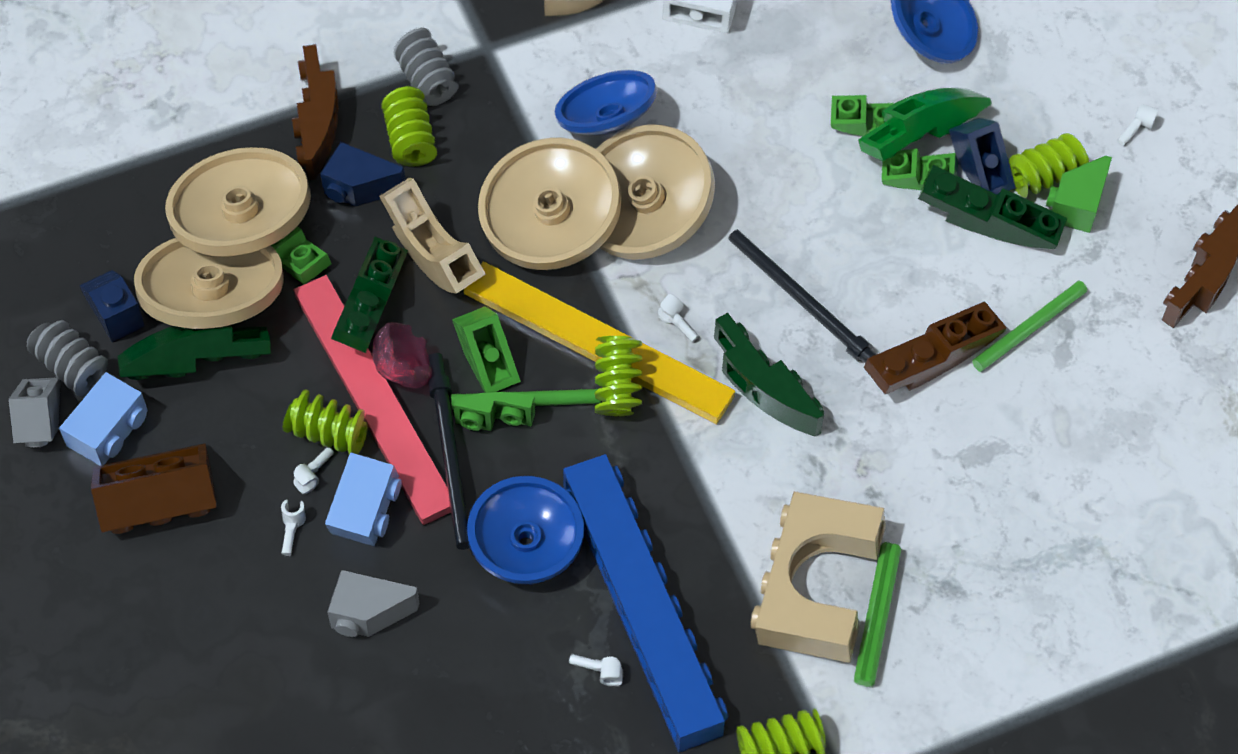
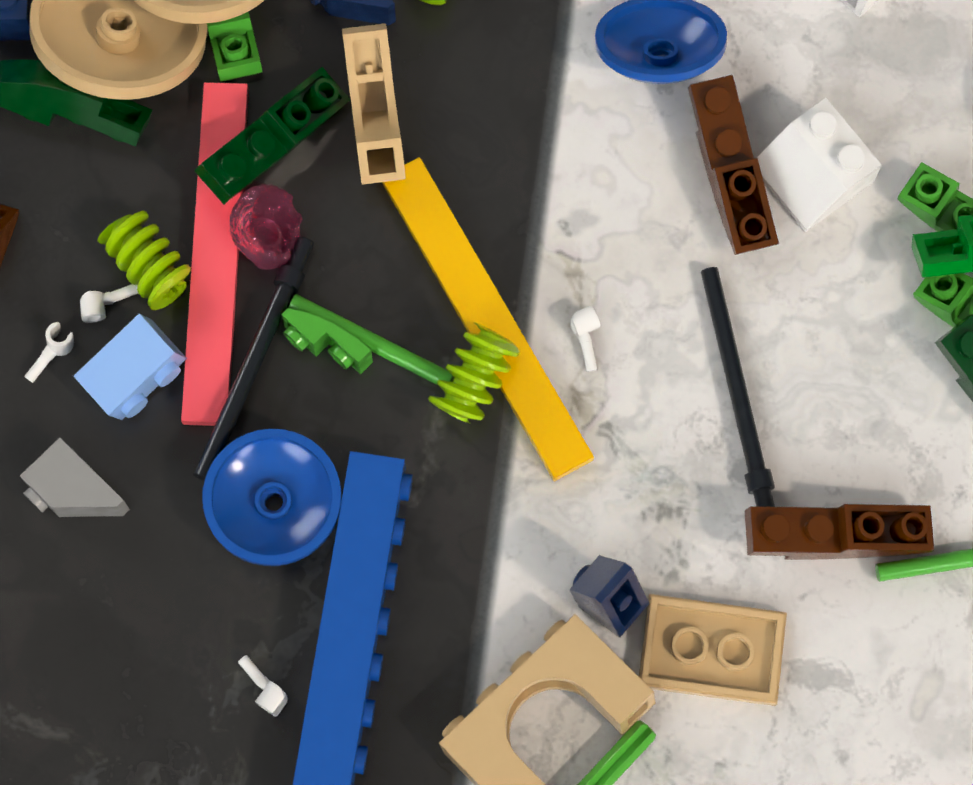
camera: 30 degrees right, 15 degrees up
(486, 349) = (359, 263): bright green slope -> none
(549, 203) = (526, 130): tan dish -> none
(663, 190) = (636, 171): tan dish -> none
(733, 179) = (731, 165): none -> reddish brown slope
(763, 131) = (817, 165): none -> white slope
(770, 388) = (634, 477): dark green slope -> none
(807, 465) = (609, 593): none -> dark blue slope
(901, 471) = (712, 649): none -> tan tile

